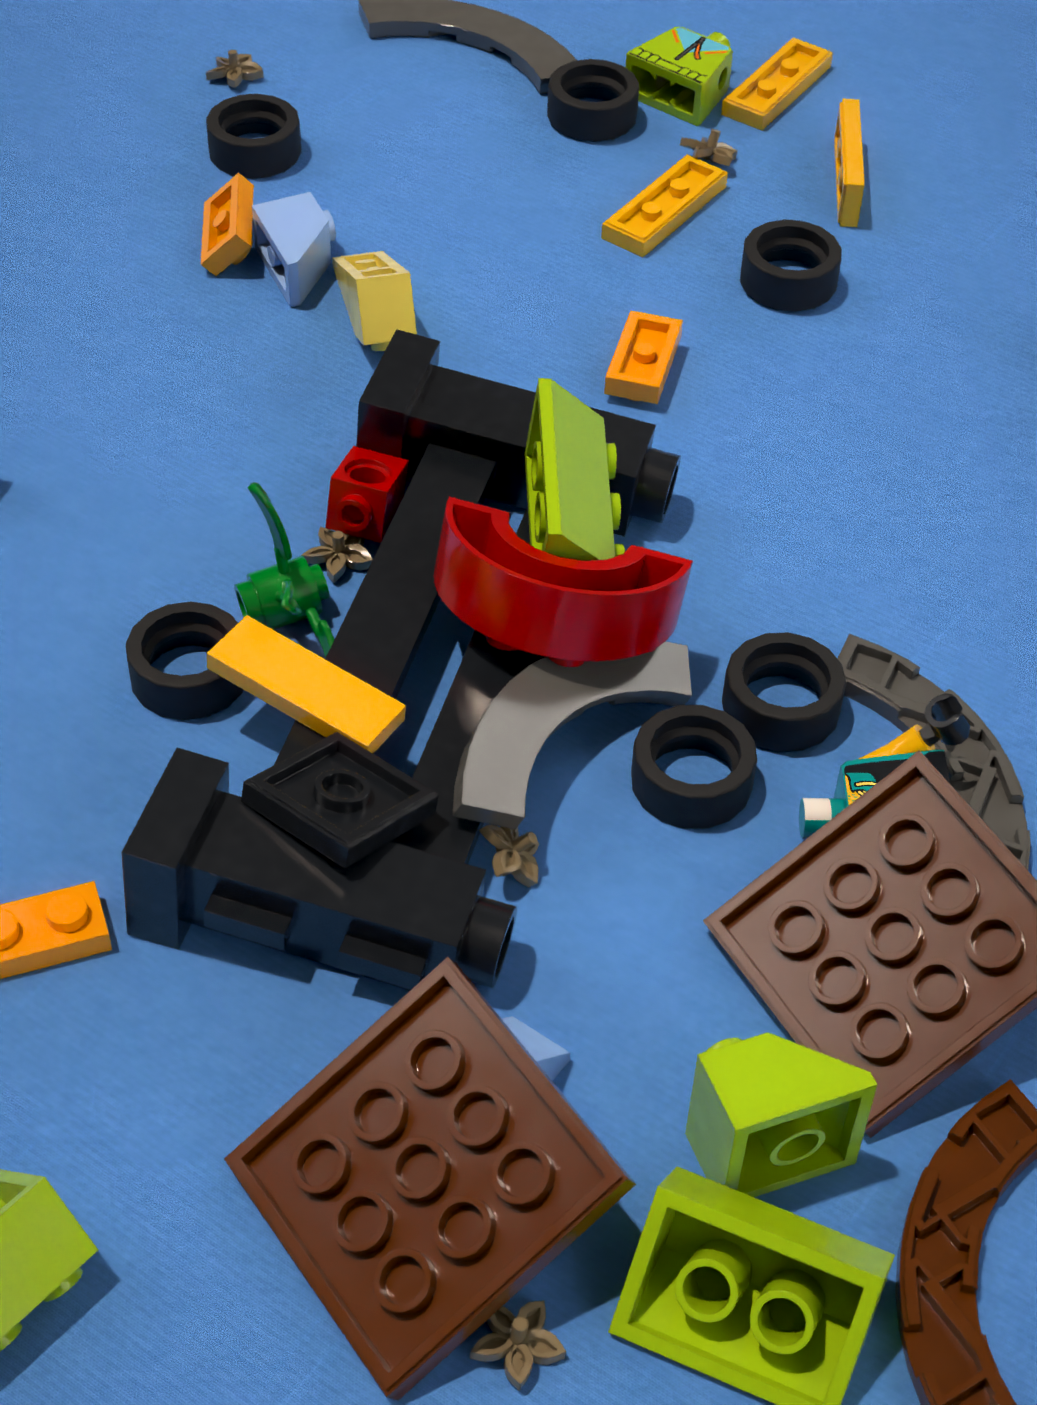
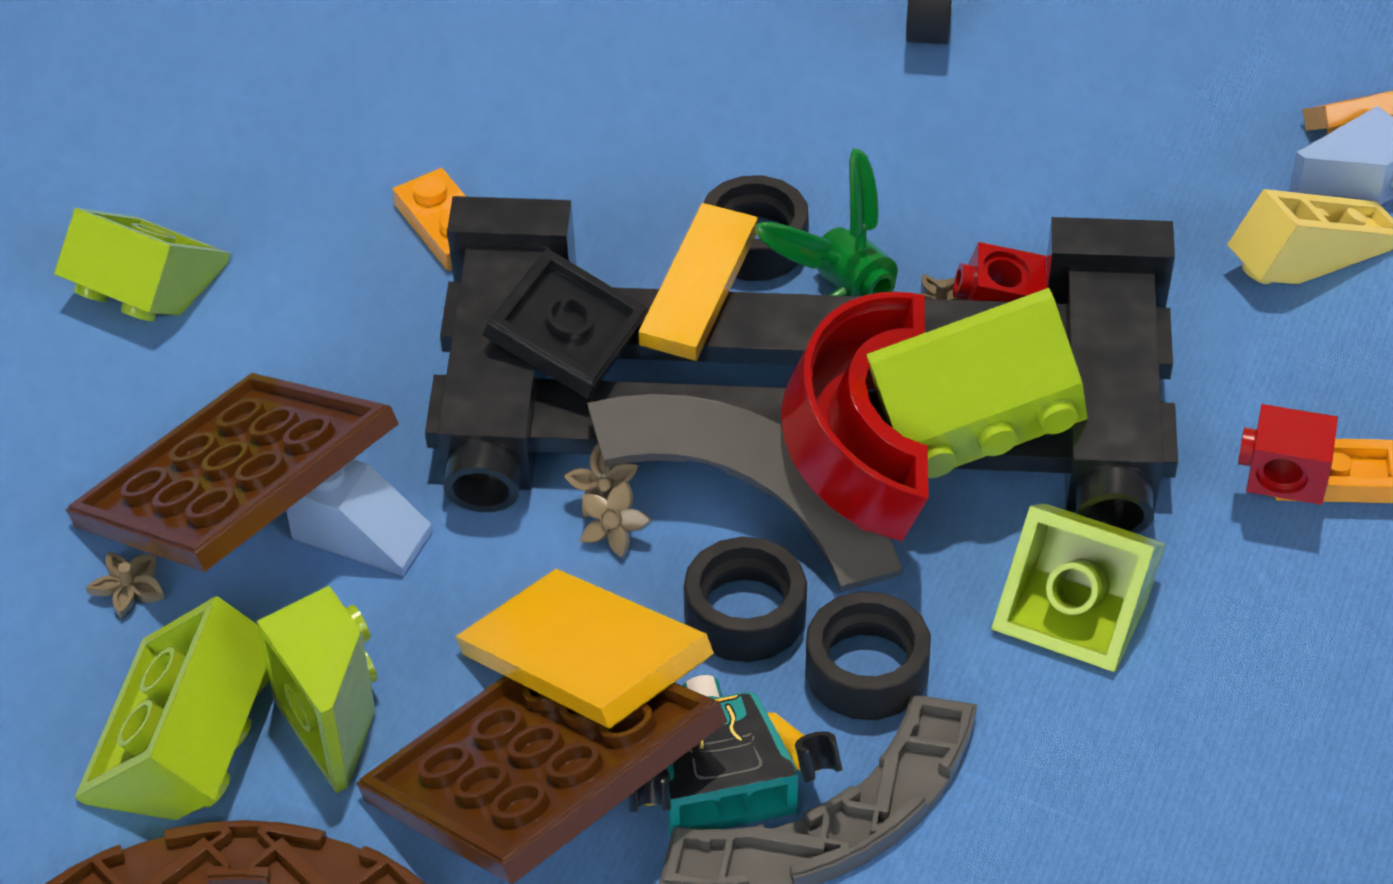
camera: 80 degrees right, 0 degrees up
(561, 851) = (613, 518): none -> dark tan plant
(652, 358) = (1289, 453): none -> red brick
(737, 532) = (1077, 586): none -> lime slope
(764, 882) = (585, 647): none -> yellow tile

